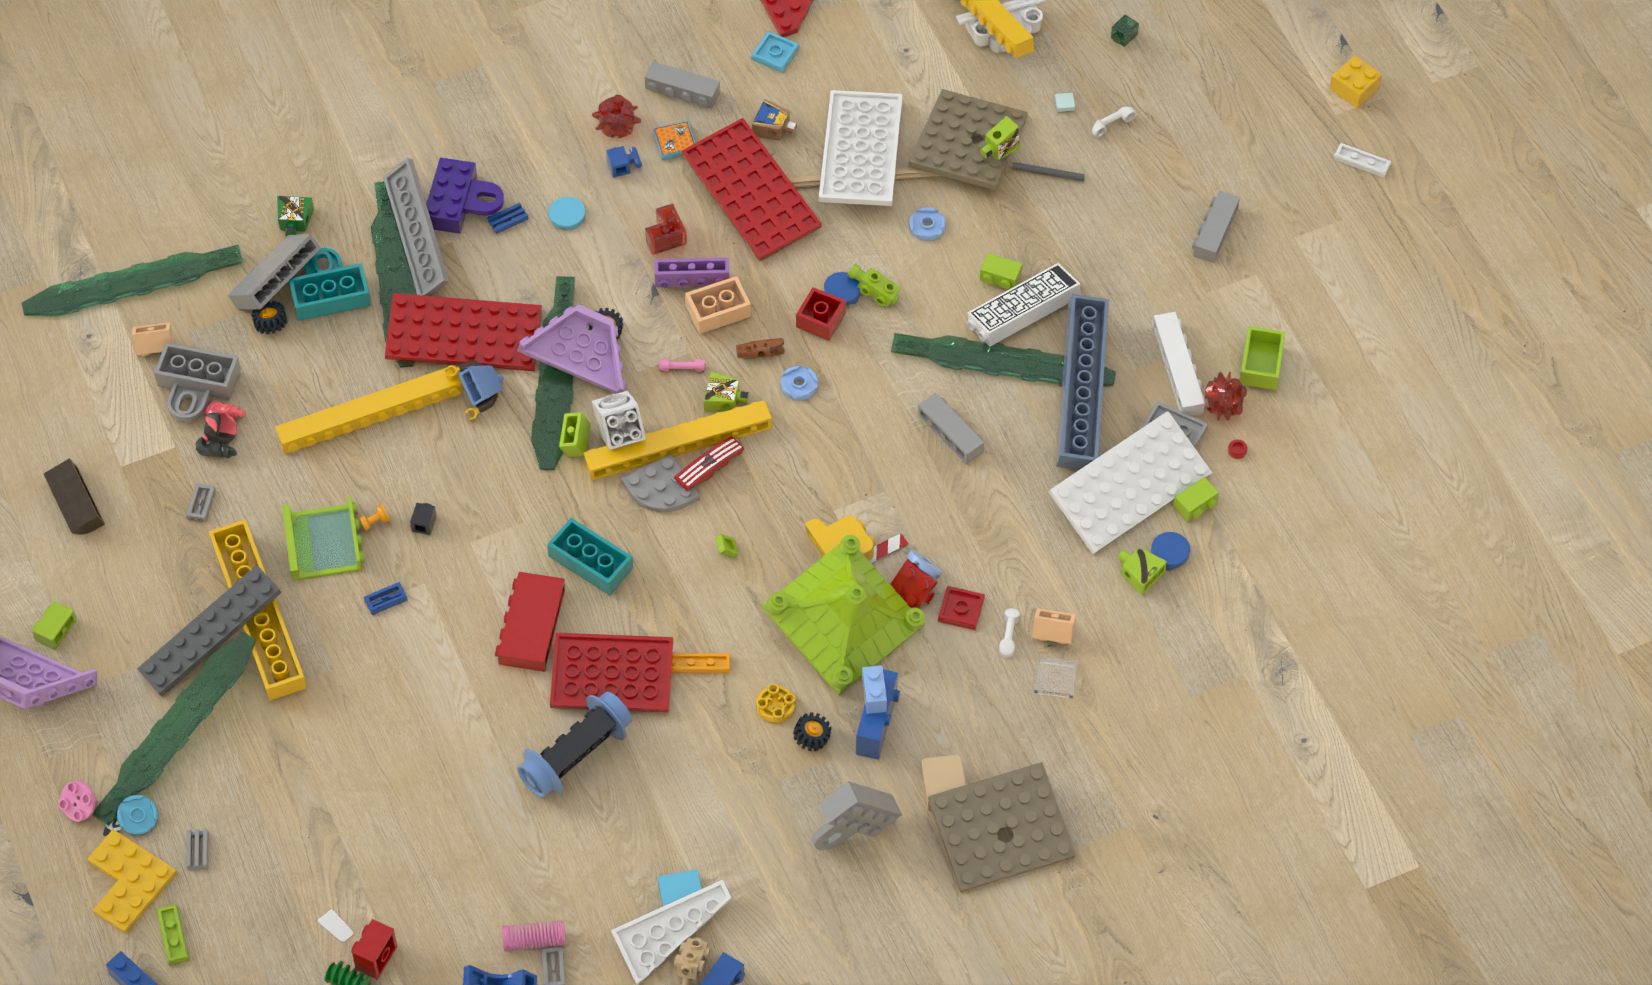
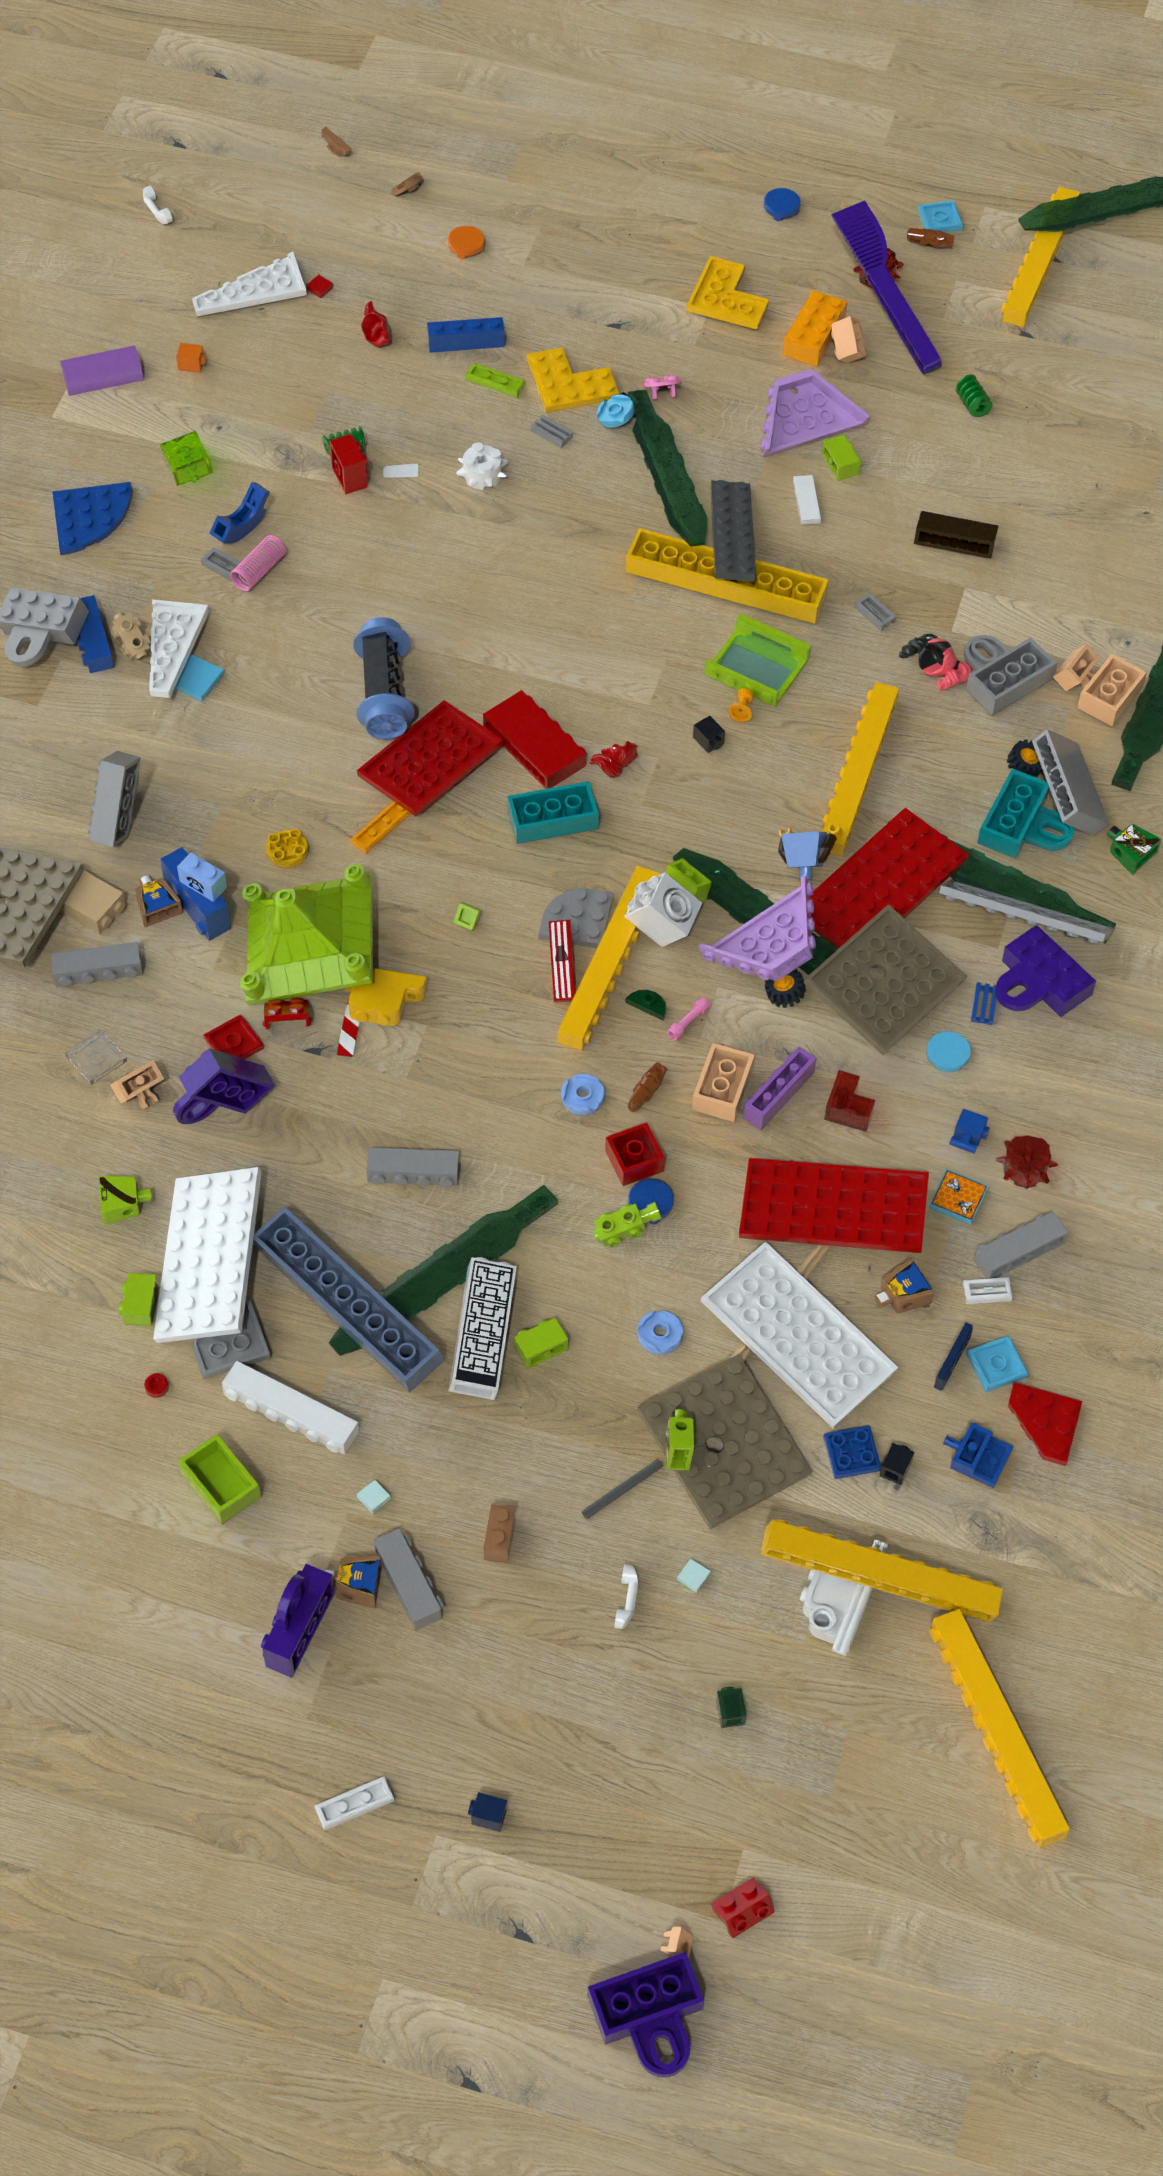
camera: 130 degrees right, 0 degrees up
(119, 622) = (806, 499): none -> white tile
(156, 304) = (1111, 690): none -> light nougat brick
(286, 860) = (482, 466): none -> white brick
(386, 601) = (656, 681): blue tile -> none
(497, 558) = (615, 758): none -> red hair
(524, 260) = (912, 986): none -> dark tan plate
(690, 397) = (648, 1002): none -> dark green plate
(723, 393) = (626, 1023): torso -> none
(727, 90) = (987, 1294): none -> white tile
(794, 70) = (953, 1356): none -> dark blue tile
(812, 731) = (232, 847): black wheel -> none
(848, 19) = (979, 1455): none -> blue plate
(894, 52) = (897, 1463): none -> black brick
(903, 742) = (156, 901): none -> torso
(907, 81) = (852, 1452): none -> blue tile
(924, 564) = (294, 1046): light blue tile -> none
(989, 734) = (96, 964): none -> light grey brick
(1007, 646) = (161, 1044): white bar -> none
(1018, 551) = (220, 1081): none -> dark purple brick
(1142, 202) = (499, 1533): none -> medium nougat brick
(1171, 548) = (115, 1238): blue tile -> none
(1184, 284) = (373, 1496): none -> light aqua tile
(1225, 396) = (208, 1402): clear red brick -> none
(1243, 249) = (358, 1580): none -> torso
(1300, 94) = (488, 1811): none -> dark blue brick
(1300, 248) = (297, 1619): none -> dark purple brick
(1355, 81) = (451, 1882): yellow brick -> none

